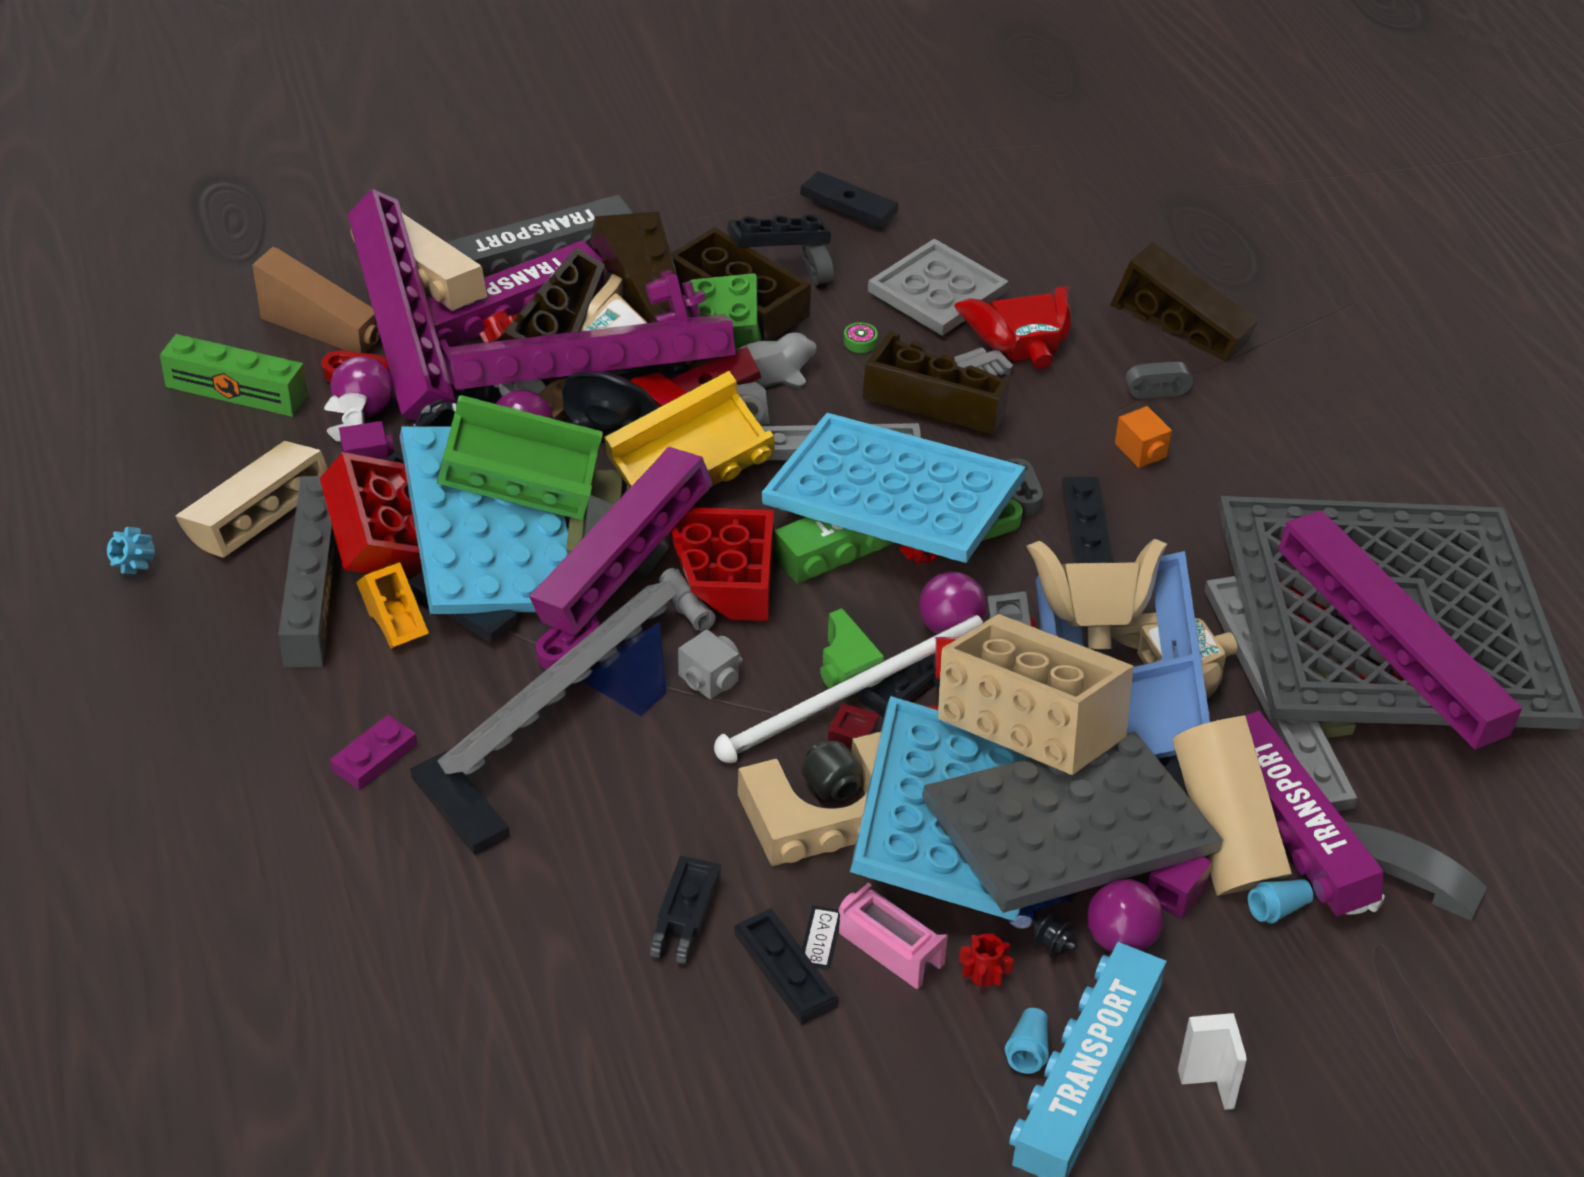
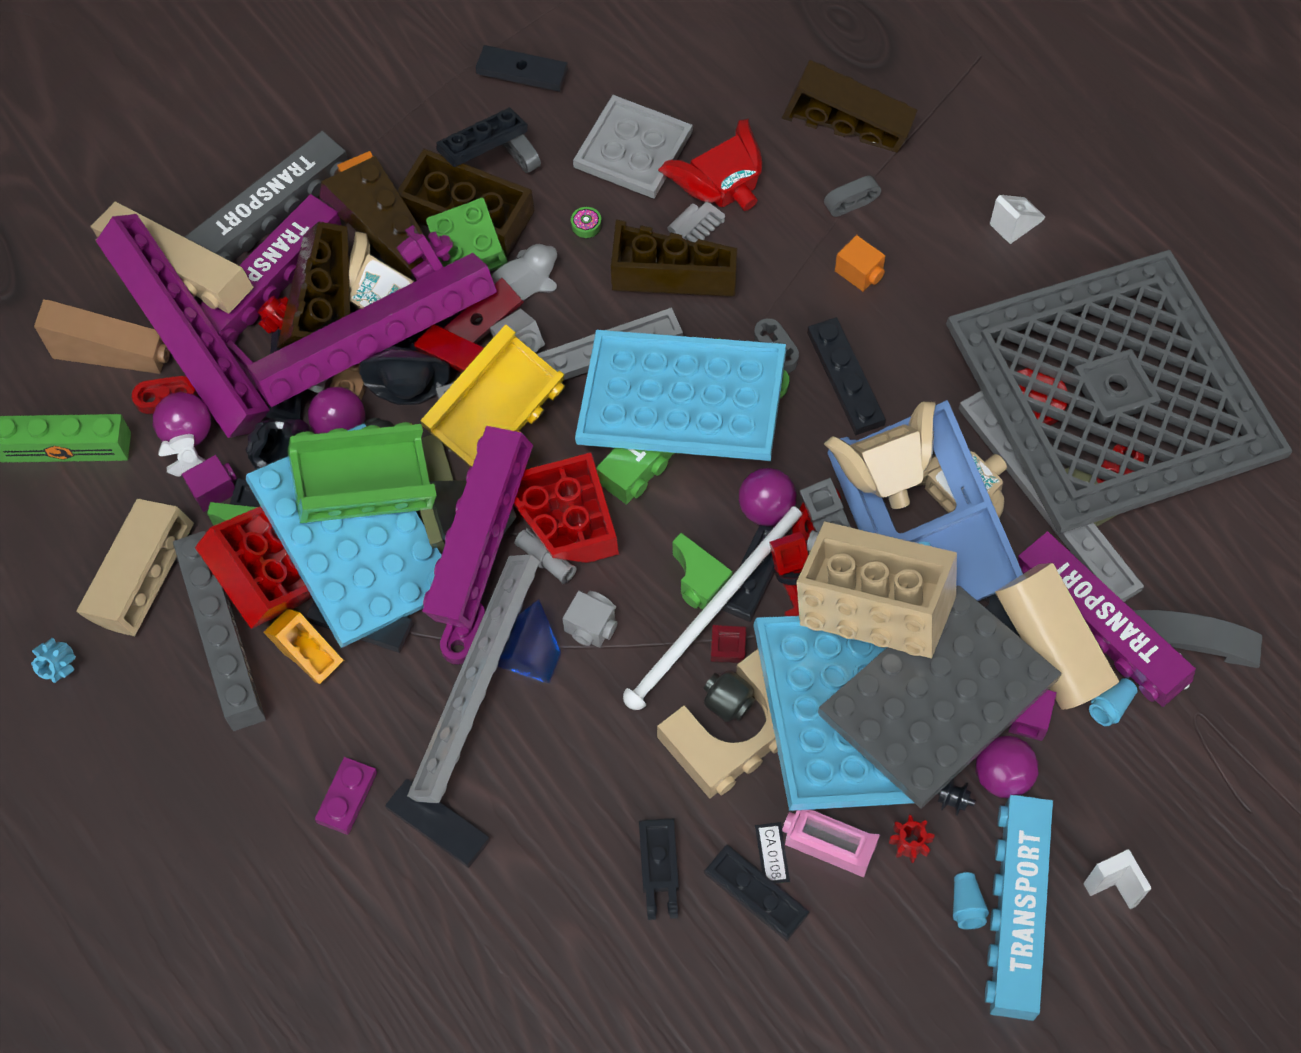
camera: 15 degrees left, 20 degrees up
(1333, 439) = (1014, 217): none -> white slope
(1400, 630) = (1132, 416): magenta brick -> none

